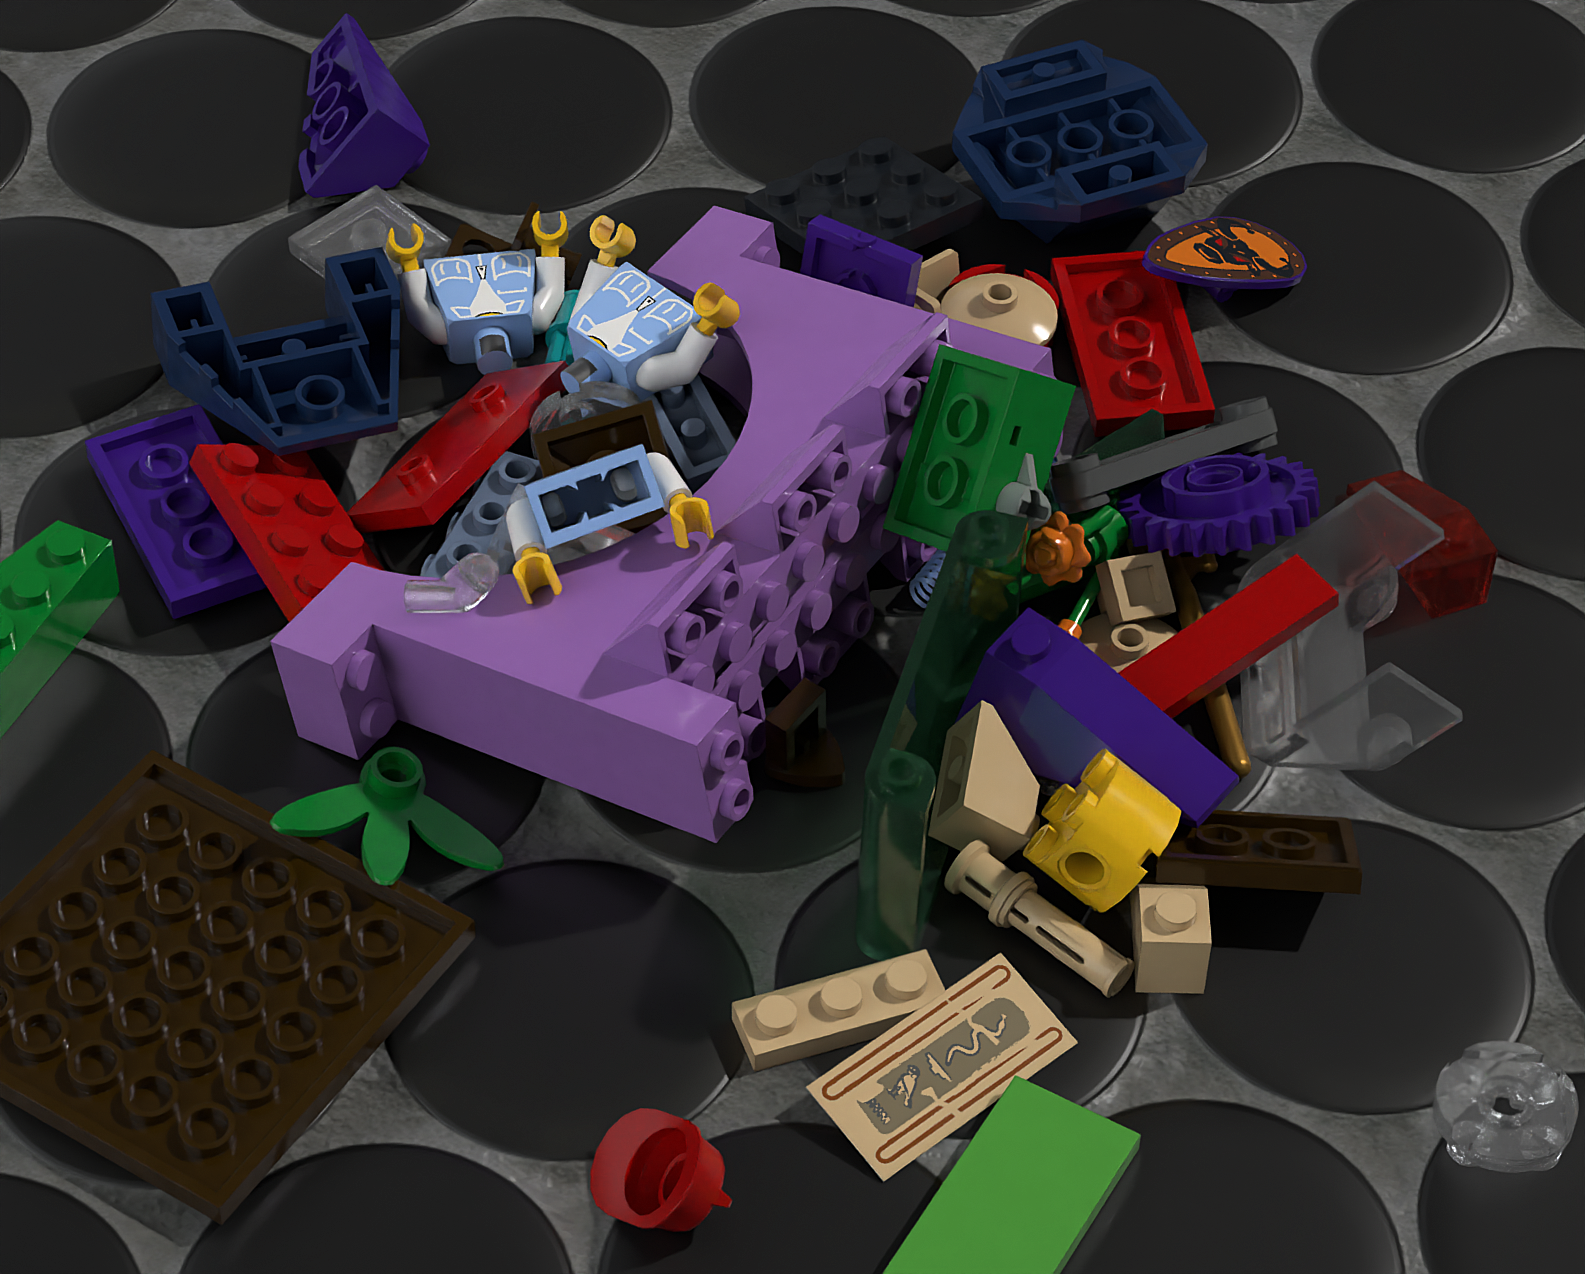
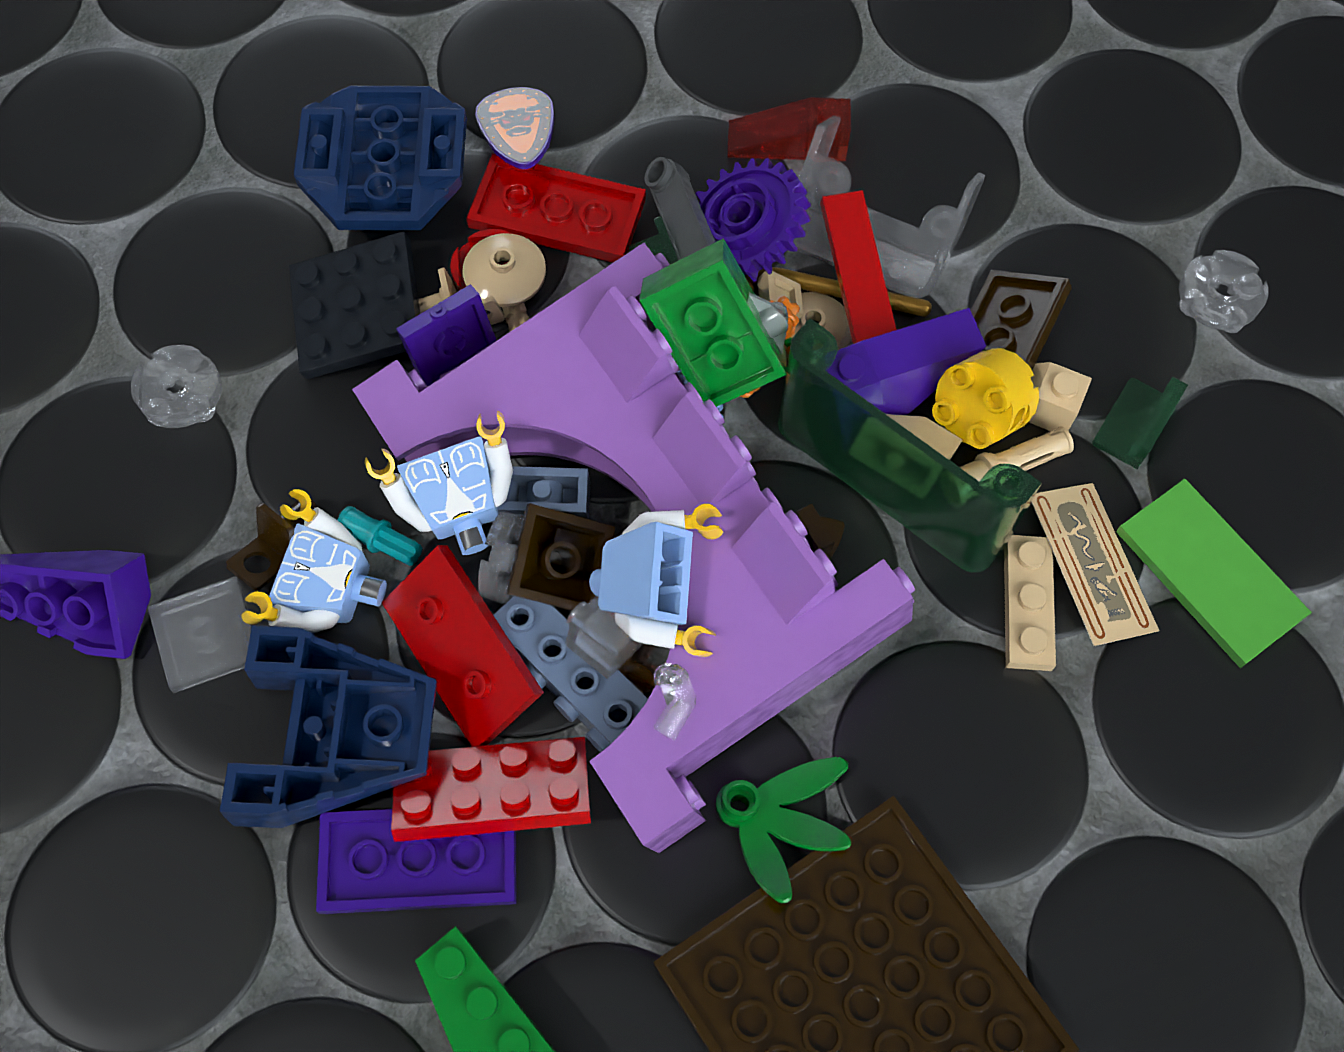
camera: 65 degrees left, 20 degrees up
(657, 1172) = (1140, 761): red piece -> none
(687, 113) = (186, 407): none -> clear plate
(1209, 1065) = (1137, 420): none -> clear green panel

